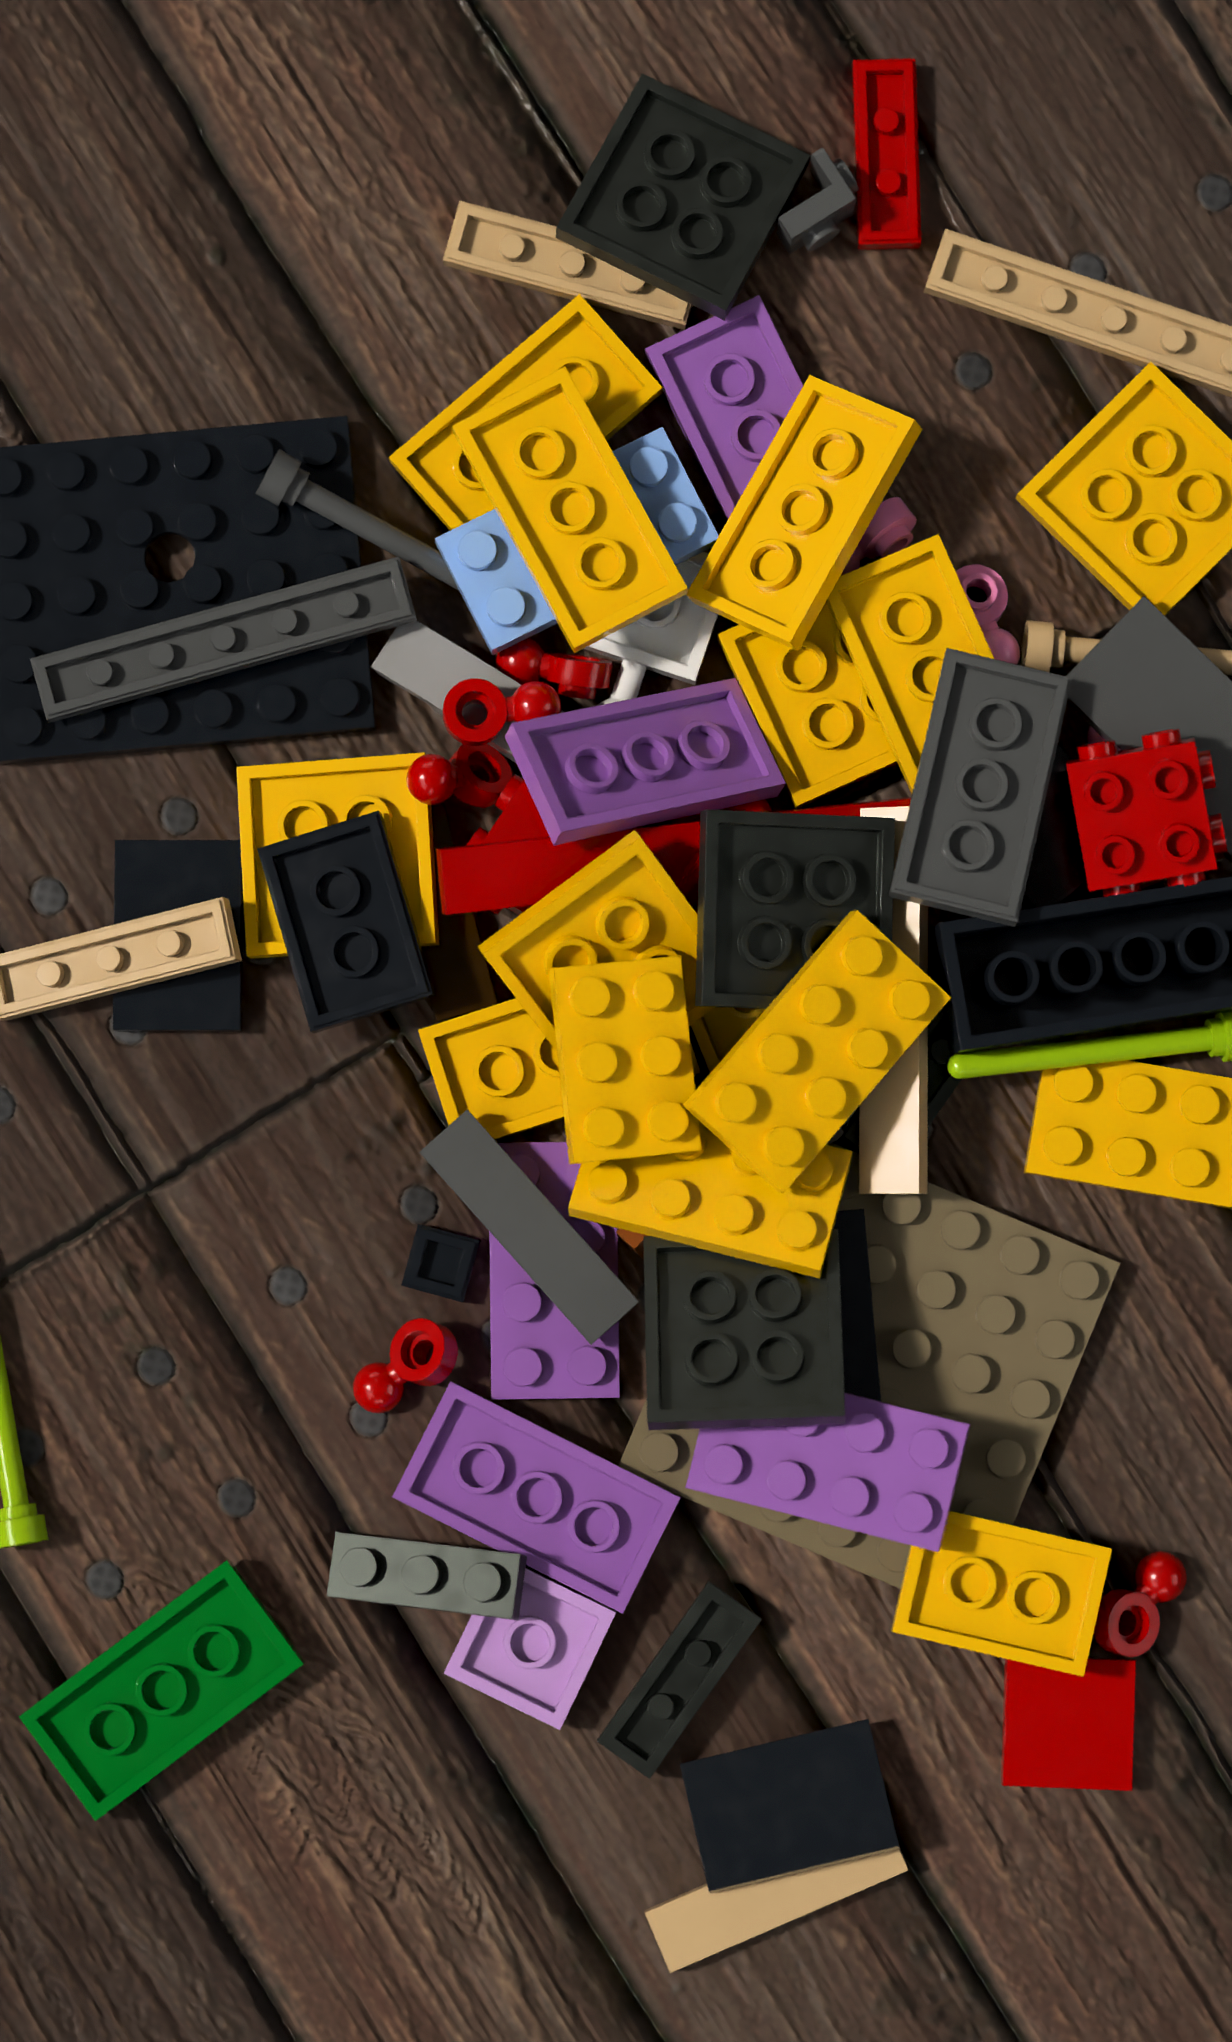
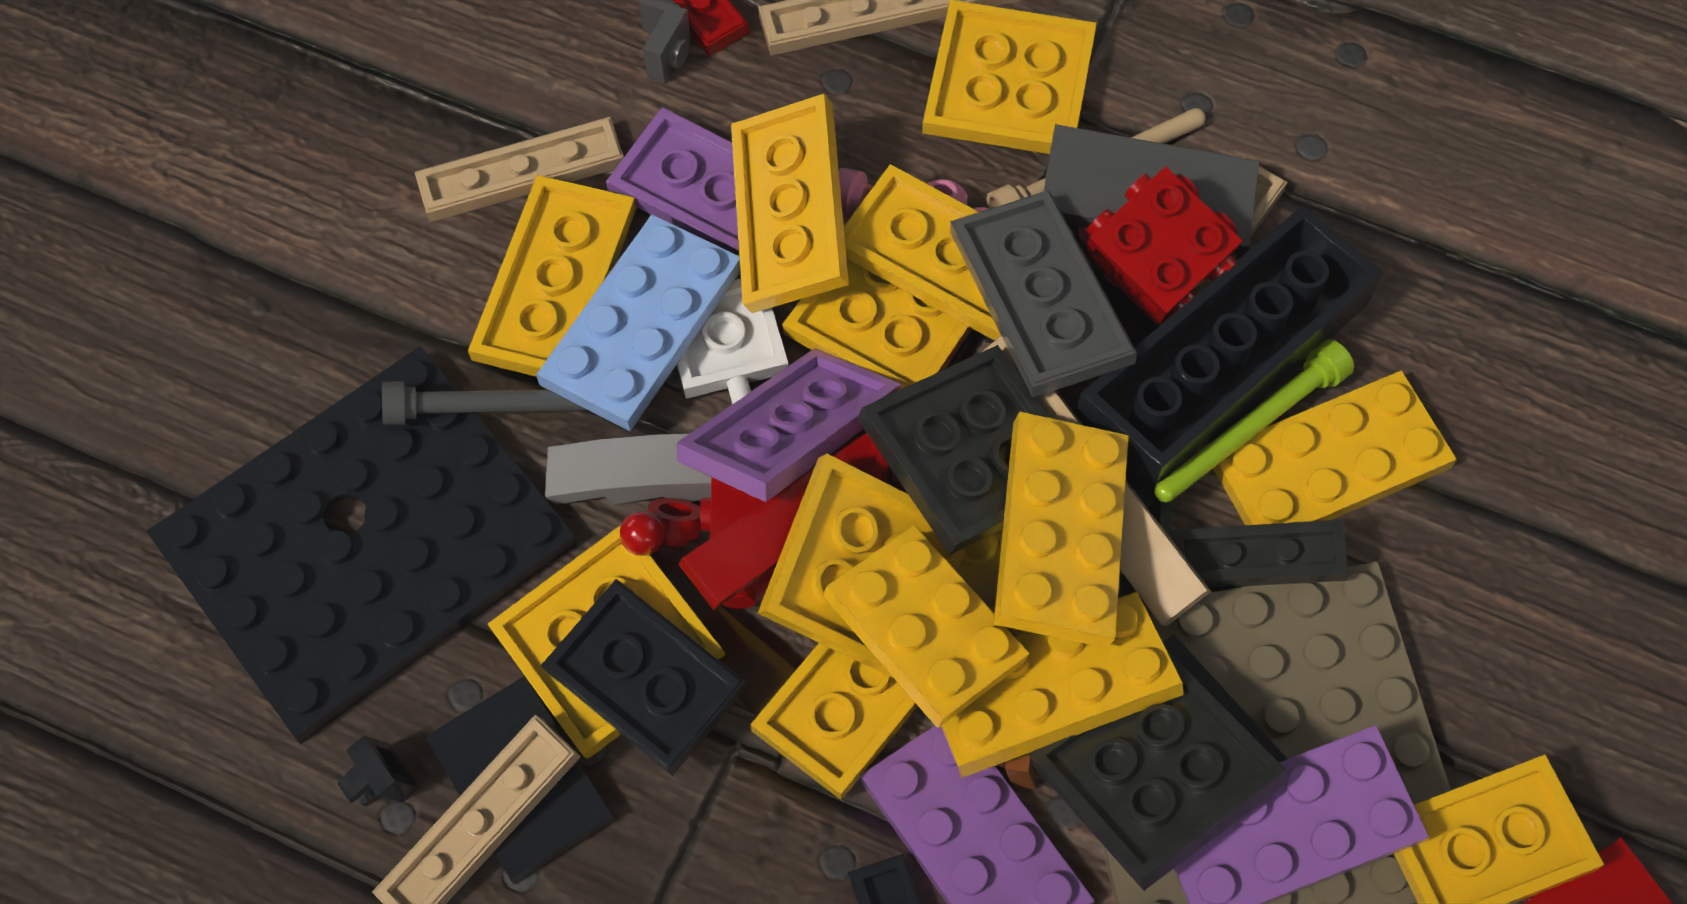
camera: 35 degrees left, 20 degrees down
(51, 849) = (375, 773): none -> black tile
(223, 639) = (418, 542): dark grey tile -> none
(528, 702) = (653, 453): red plate -> none
(529, 1227) = (937, 811): dark grey tile -> none
(569, 509) = (622, 290): yellow plate -> none
(576, 674) = (688, 412): red plate -> none
(682, 196) = (568, 80): pearl dark grey plate -> none
(1010, 1185) = (1266, 553): none -> pearl dark grey plate
(1158, 1579) = (1586, 769): red plate -> none

